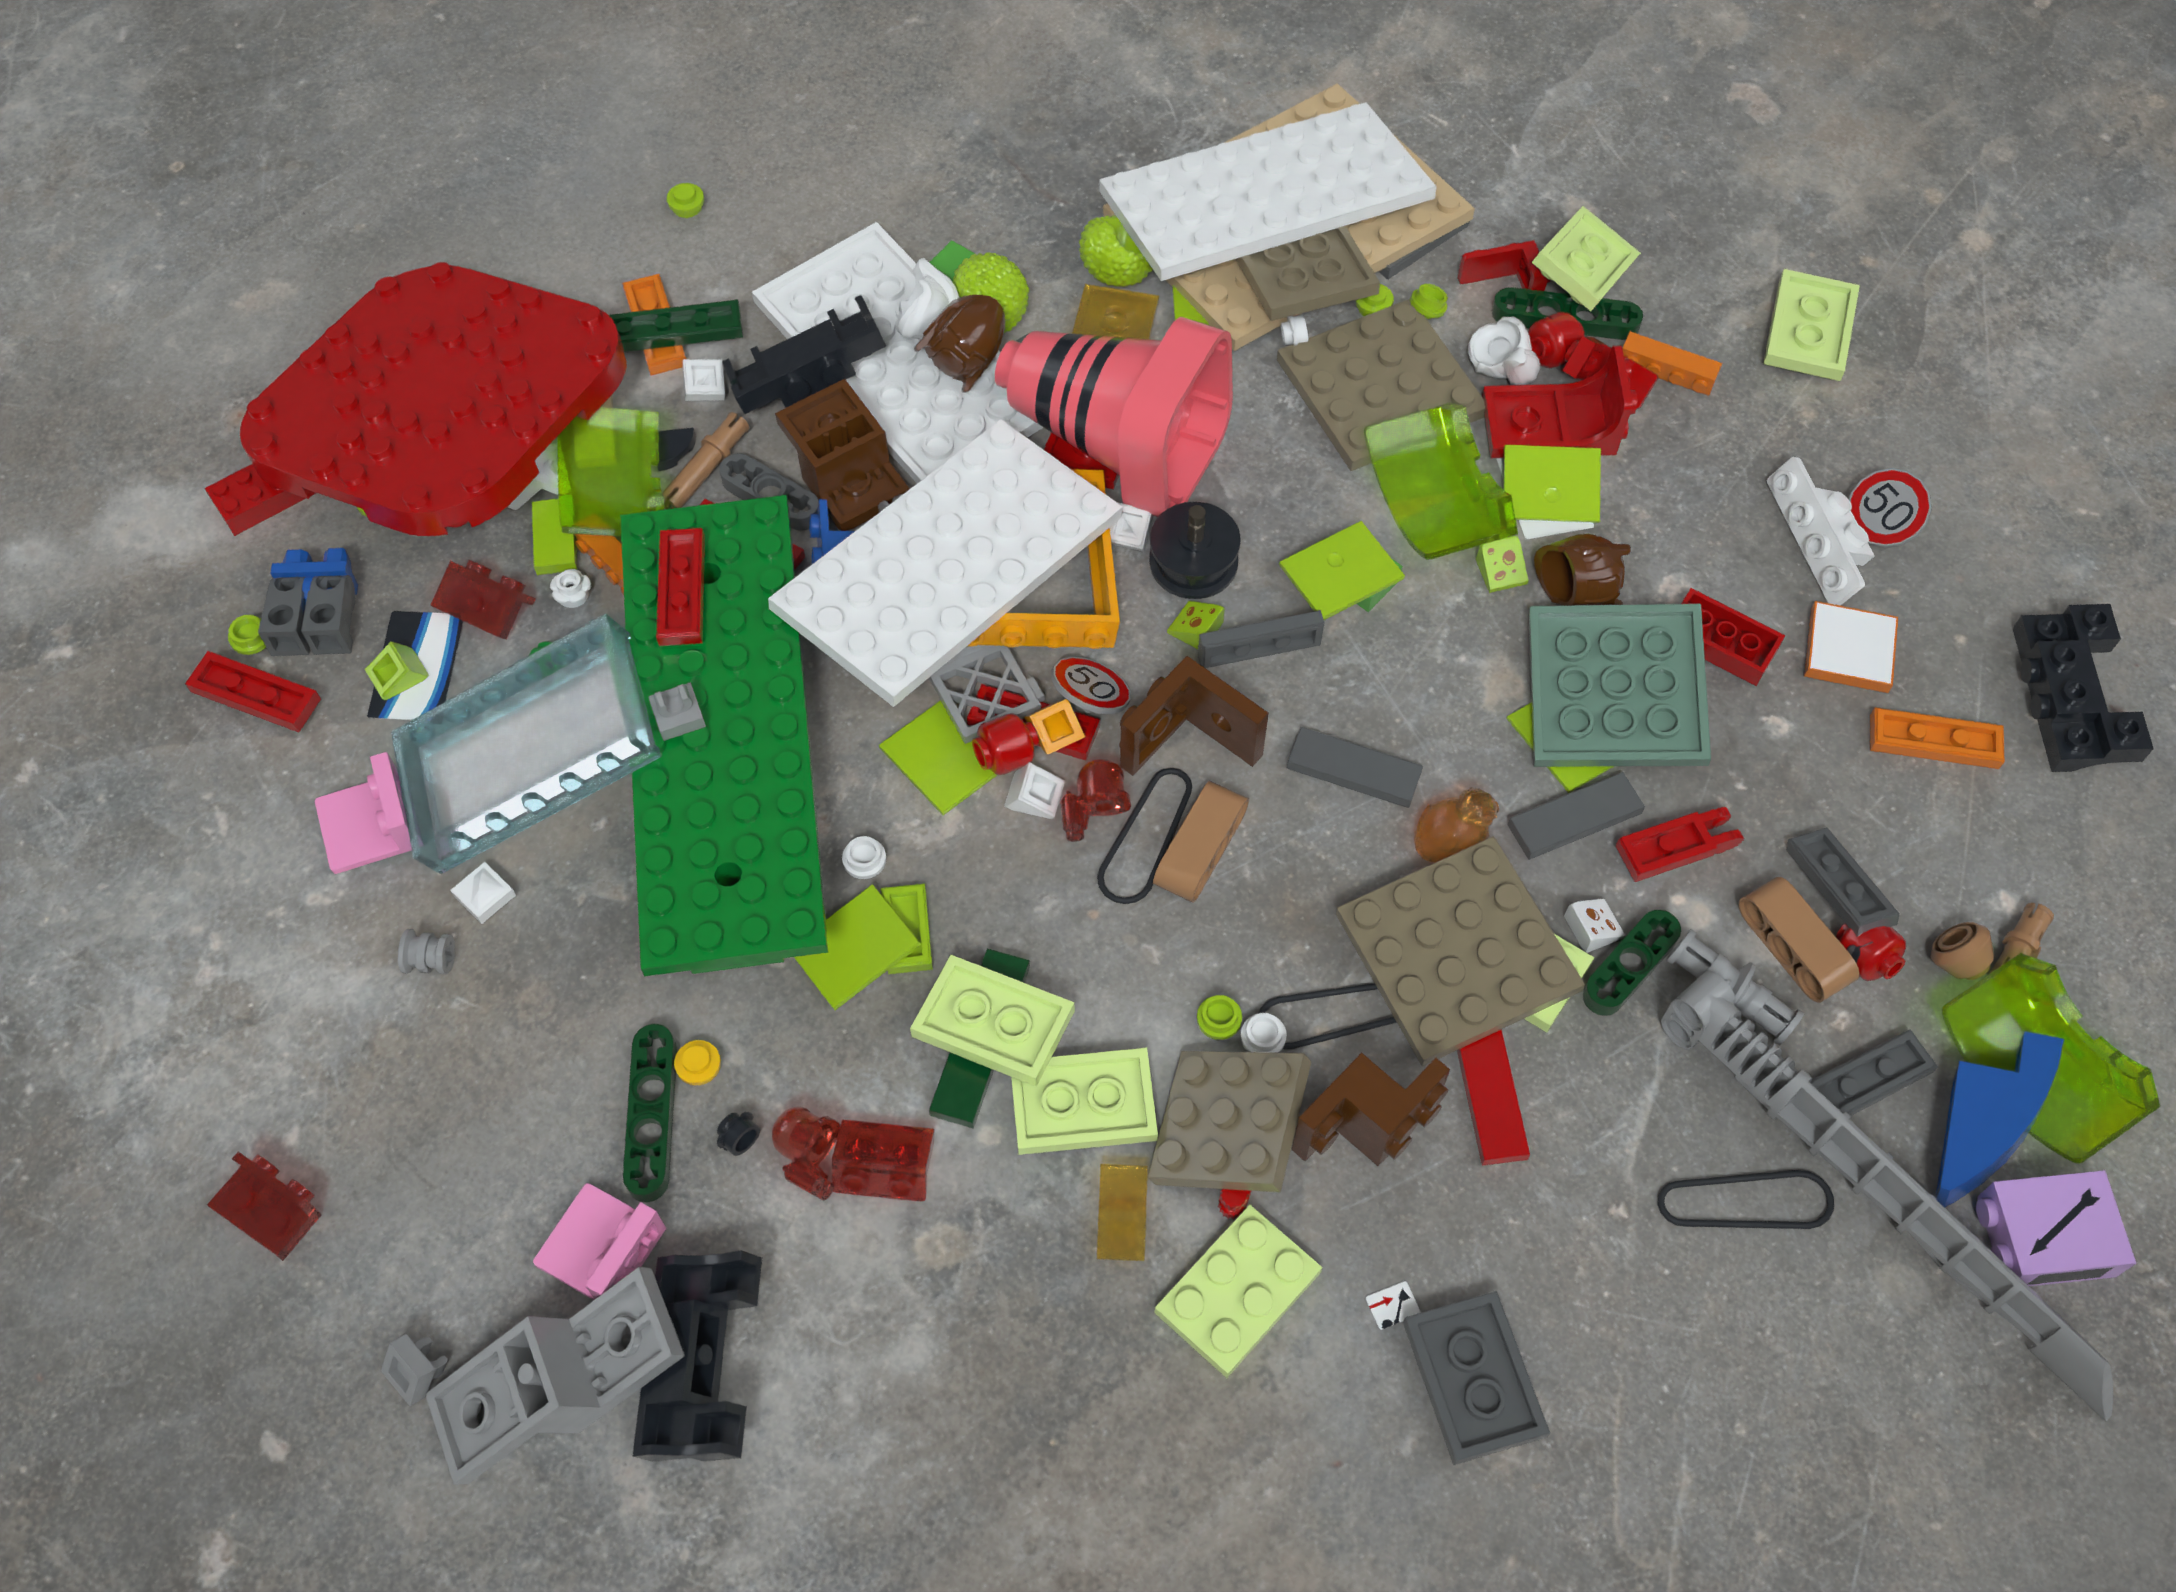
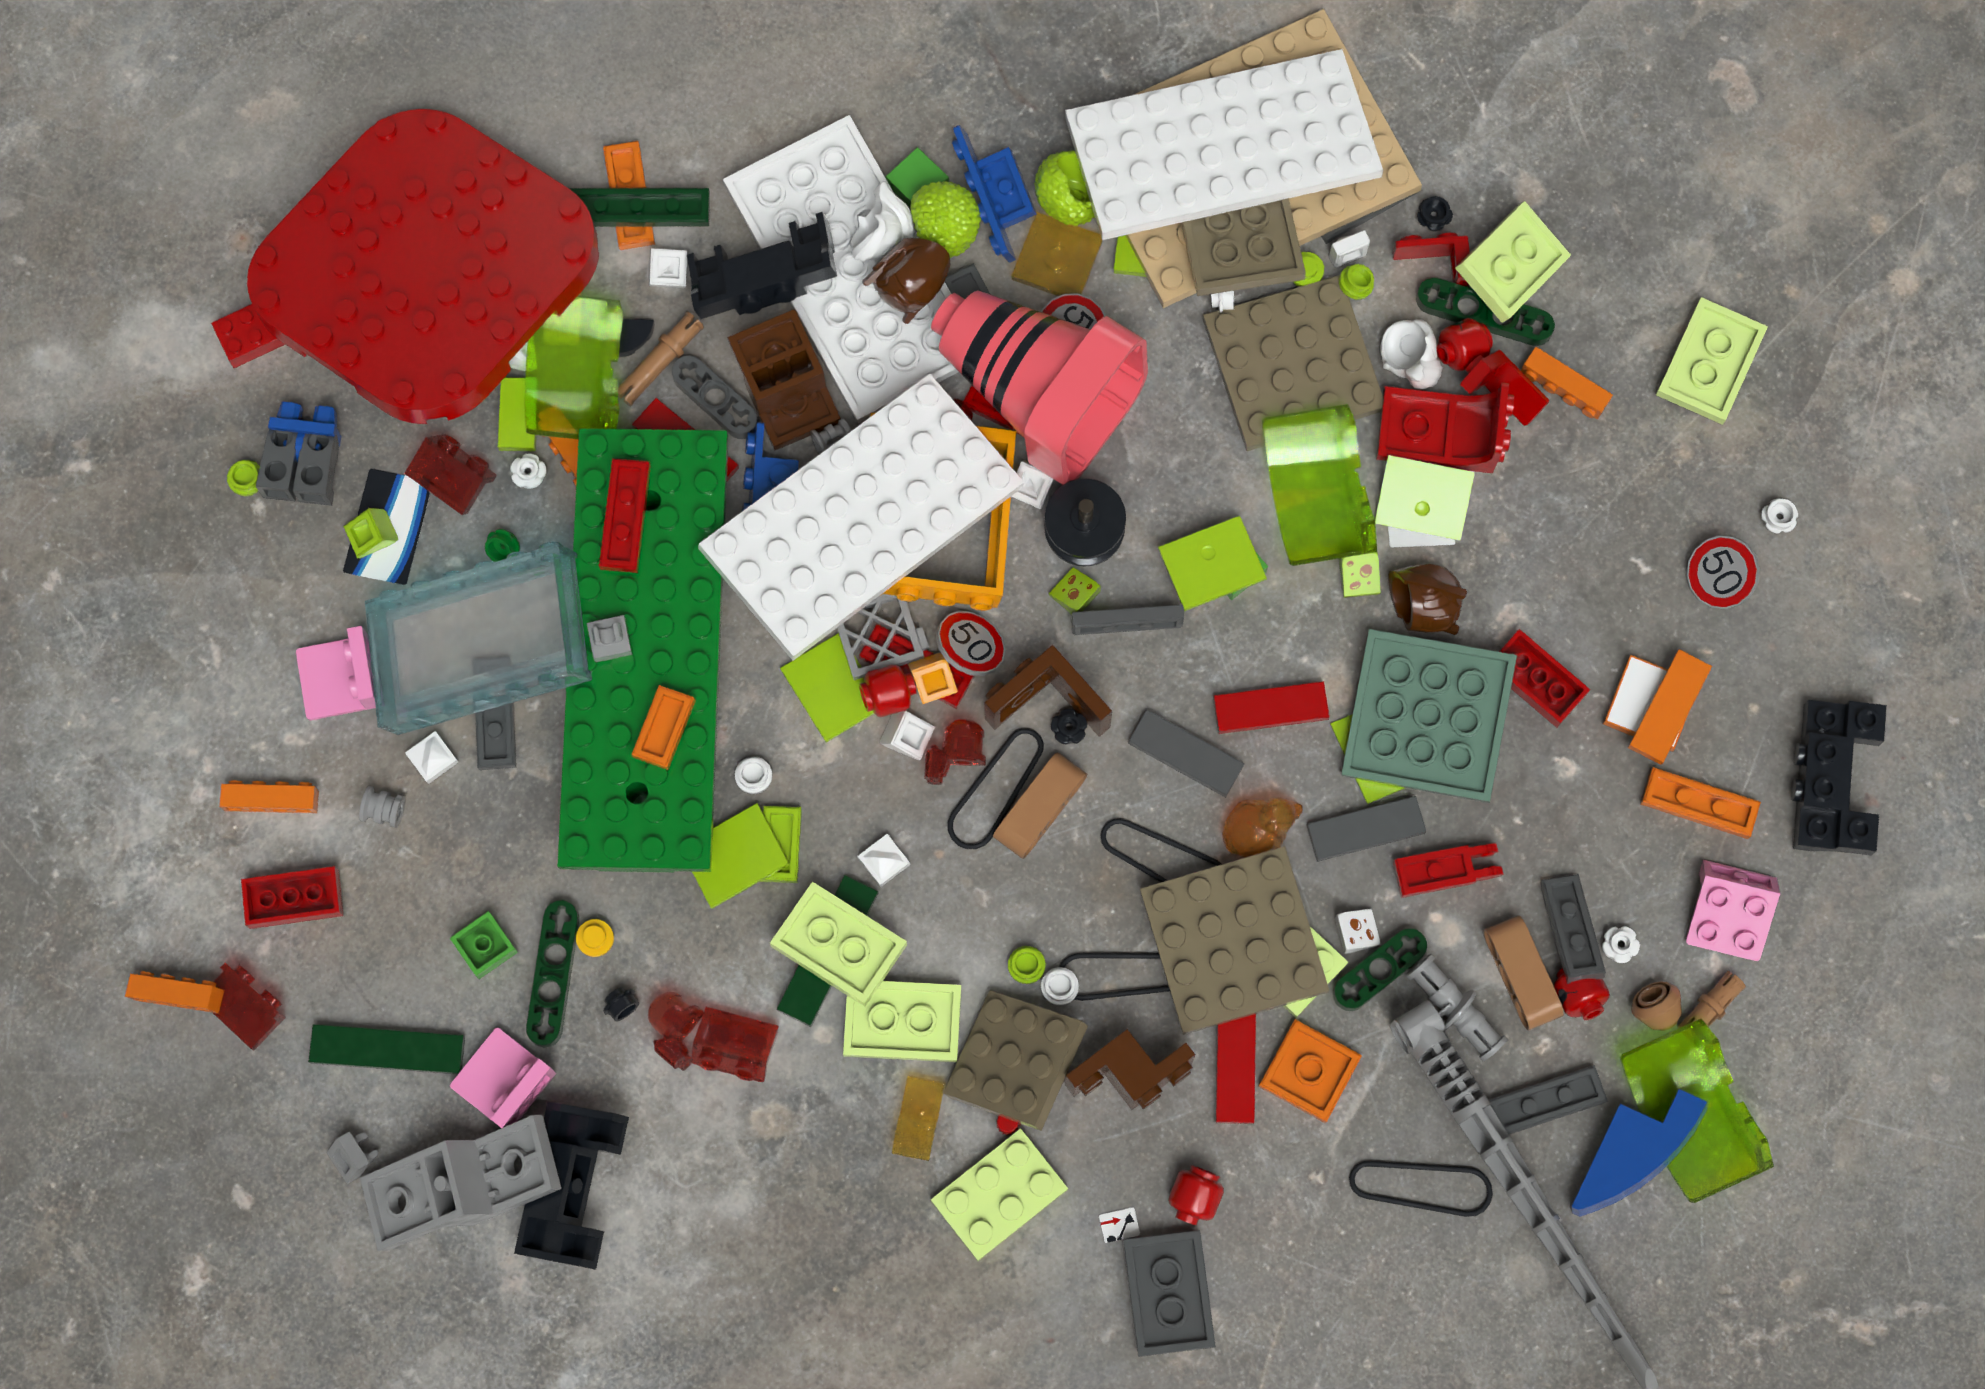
camera: 10 degrees right, 15 degrees up
(176, 1199) = (174, 993): none -> orange piece
(253, 691) = (247, 536): red plate -> none
(289, 963) = (269, 798): none -> orange piece
(321, 1069) = (292, 897): none -> red piece
(449, 1232) = (386, 1049): none -> dark green tile
(557, 856) = (496, 738): none -> dark grey tile
(562, 1090) = (483, 945): none -> bright green piece
(685, 200) = (671, 55): lime plate -> none
(751, 795) = (663, 727): none -> orange tile
(1030, 928) = (883, 860): none -> white tile
(1045, 268) = (1000, 189): none -> blue bracket
(1215, 767) = (1066, 736): none -> black plate
(1334, 857) = (1154, 835): none -> black piece
(1414, 273) = (1349, 248): none -> white tile
(1438, 708) = (1271, 707): none -> red tile
(1481, 1249) = (1196, 1195): none -> red head
(1492, 234) = (1438, 205): none -> black plate
(1580, 1088) = (1310, 1071): none -> orange tile
(1823, 530) = (1660, 583): white bracket -> none
(1876, 642) = (1670, 707): none -> orange tile
(1910, 893) = (1616, 953): none -> white plate
(1928, 451) = (1783, 507): none -> white plate
(2014, 842) = (1733, 910): none -> bright pink bracket
(2056, 1228) = (1656, 1251): lavender brick -> none

